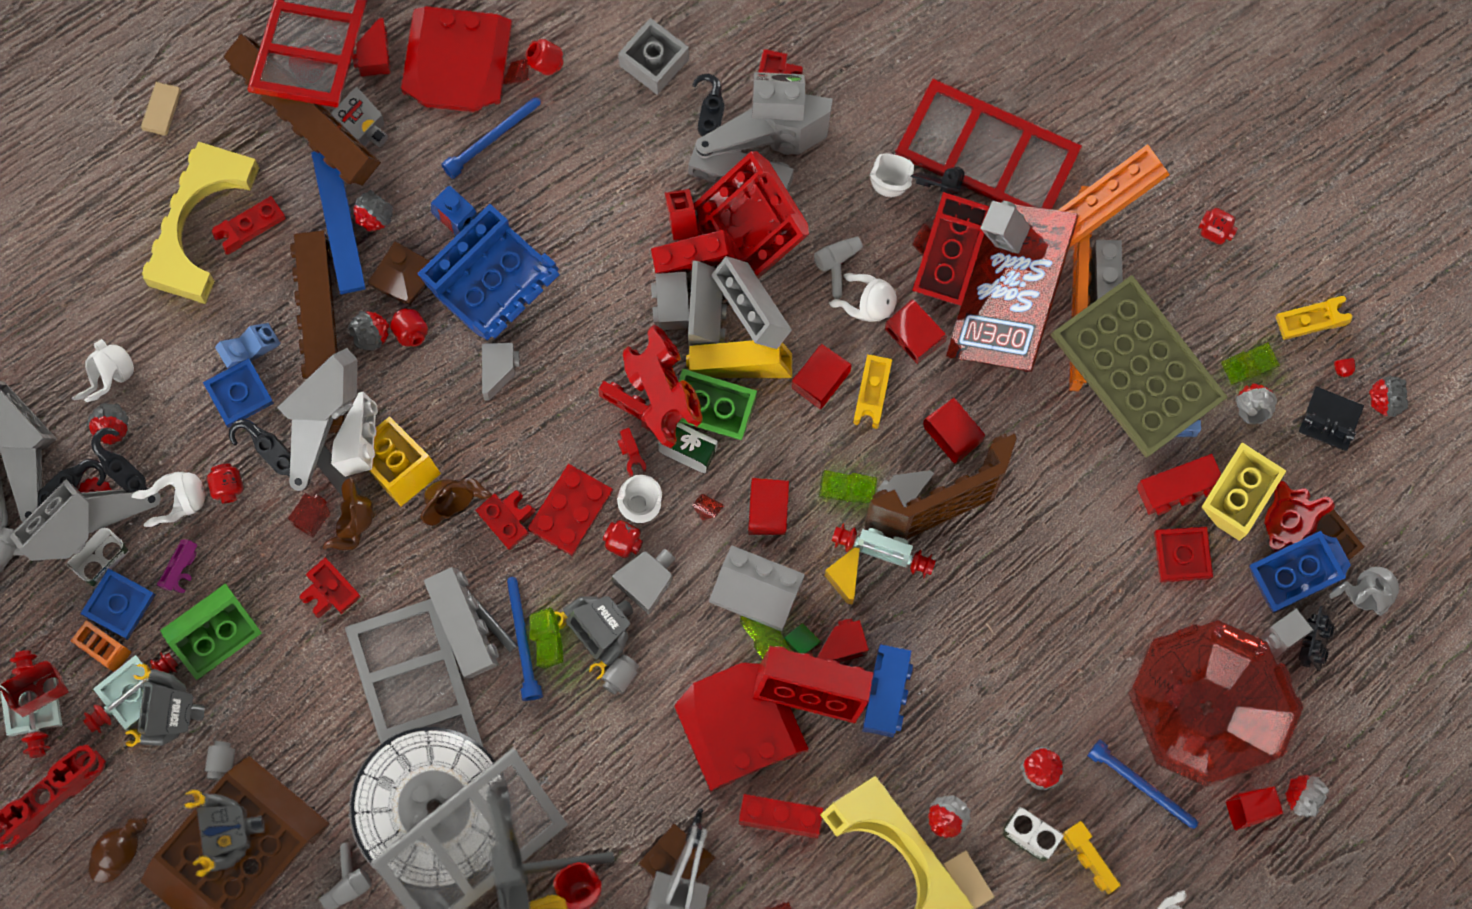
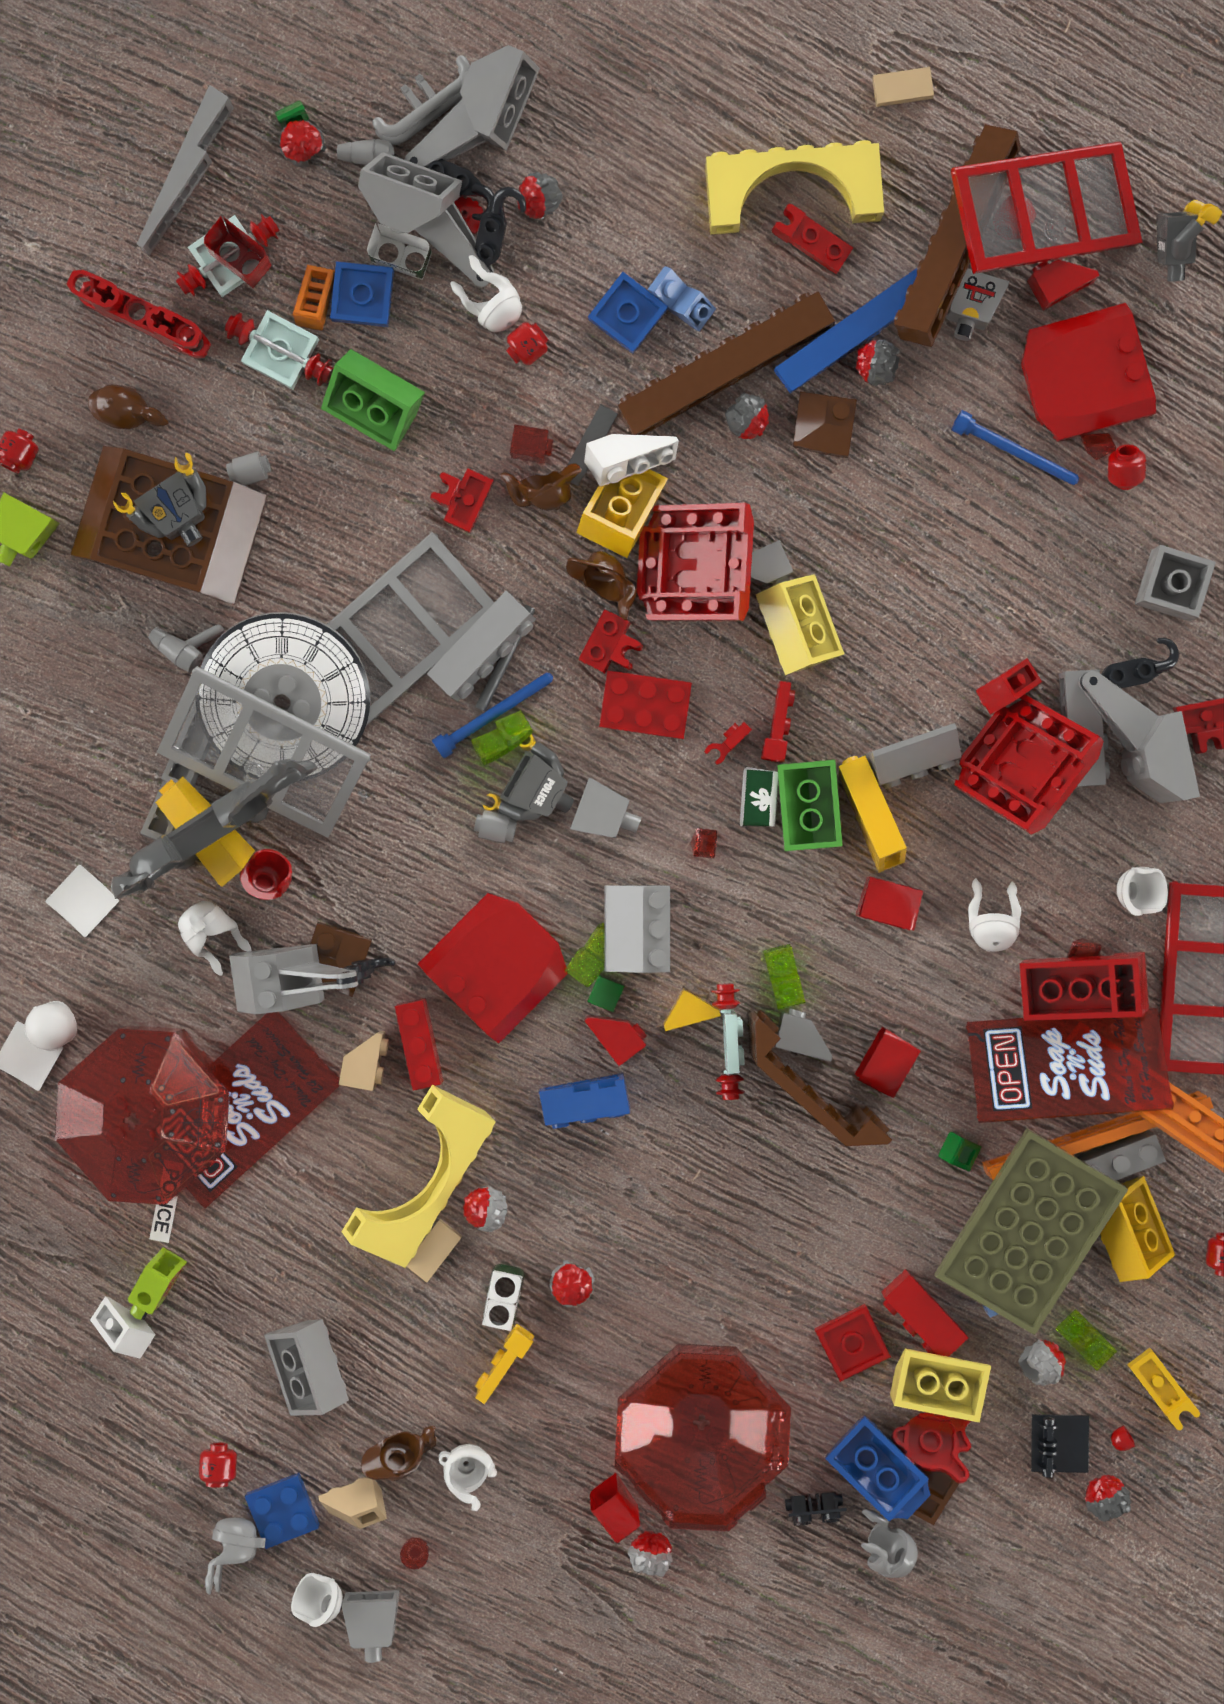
camera: 70 degrees right, 15 degrees up
(108, 362) = (598, 162): white hair -> none
(164, 709) = (274, 390): dark grey torso -> none
(183, 556) = (434, 335): magenta plate -> none
(312, 411) = (628, 398): light grey slope -> none
(409, 327) = (768, 456): red head -> none
(452, 210) = (911, 451): blue torso -> none
(470, 417) = (696, 562): none -> red wedge
(488, 274) = (858, 514): blue slope -> none
(558, 358) = (799, 624): none -> light yellow slope
(559, 864) = (289, 853): dark grey bar -> none
(622, 539) = (635, 771): red head -> none
(640, 498) = (681, 772): white helmet -> none
(668, 396) = (796, 757): red piece -> none
(671, 301) = (909, 715): light grey brick -> none
(680, 255) = (969, 719): red brick -> none
(751, 302) = (933, 803): light grey brick -> none
(768, 507) = (728, 905): red piece -> none
(778, 96) = (1178, 738): light grey slope -> none
(778, 874) = (362, 1065): none -> tan slope
(813, 684) = (559, 1026): red brick -> none
(831, 258) = (1026, 863): light grey piece -> none
(873, 389) = (898, 962): yellow plate -> none
(915, 331) = (978, 981): red piece -> none
(950, 183) = (1155, 956): black hinge -> none
(1005, 226) = (1128, 1036): light grey brick -> none
(1052, 403) = (959, 1151): none -> green slope
(1102, 754) = (612, 1334): blue piece -> none
(1177, 290) = (1136, 1235): none -> yellow slope
(1286, 633) = (807, 1479): light grey brick -> none

